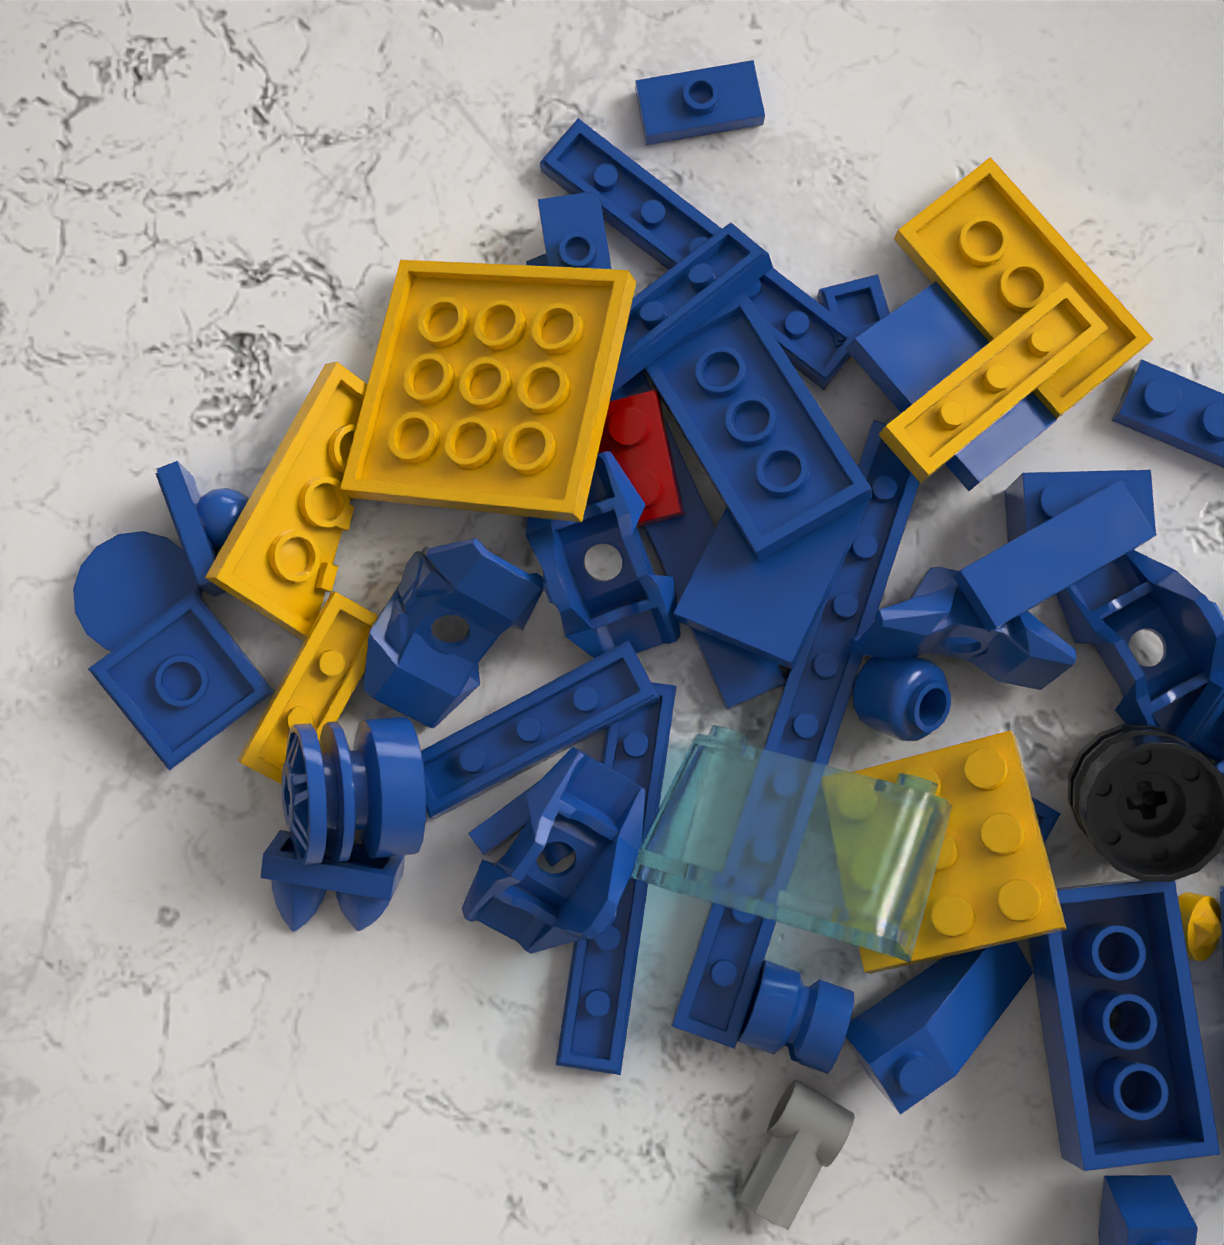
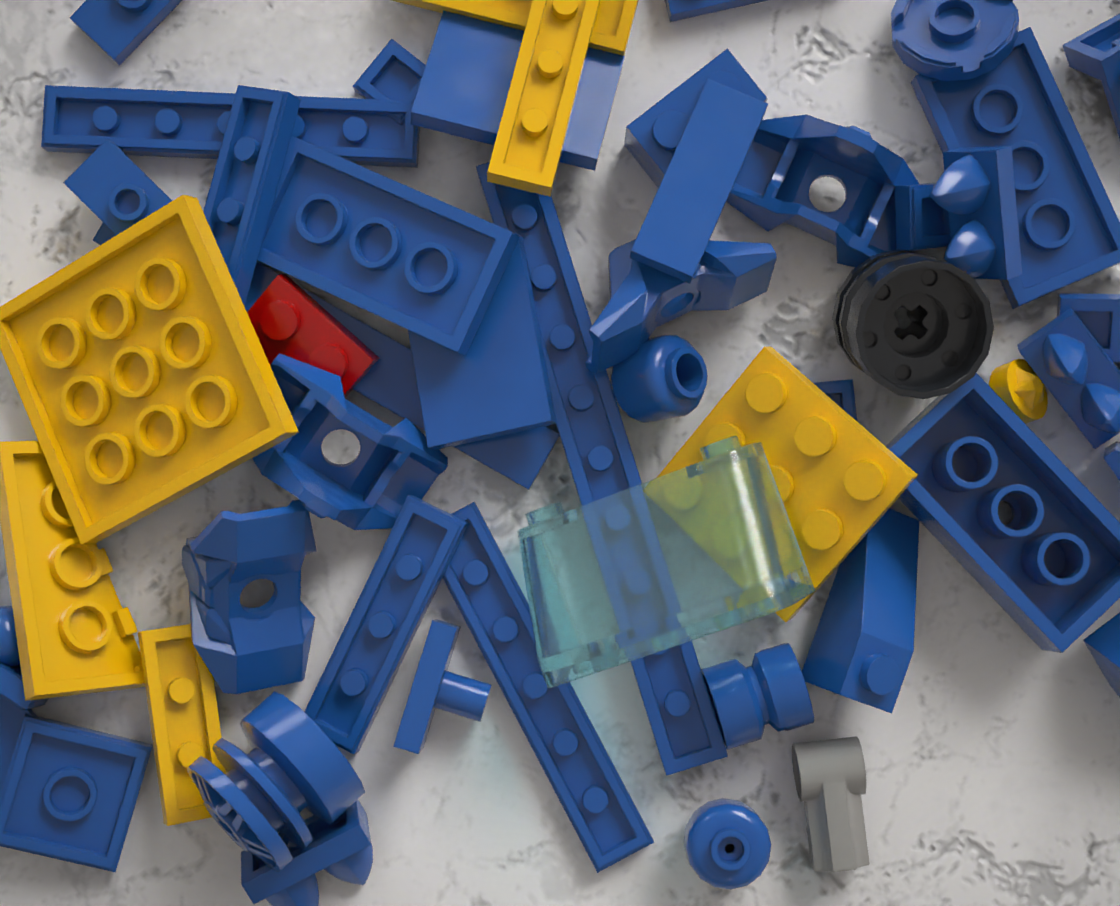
camera: 30 degrees left, 5 degrees up
(602, 822) = (492, 658): blue piece -> none
(677, 1100) = (716, 826): none -> blue head

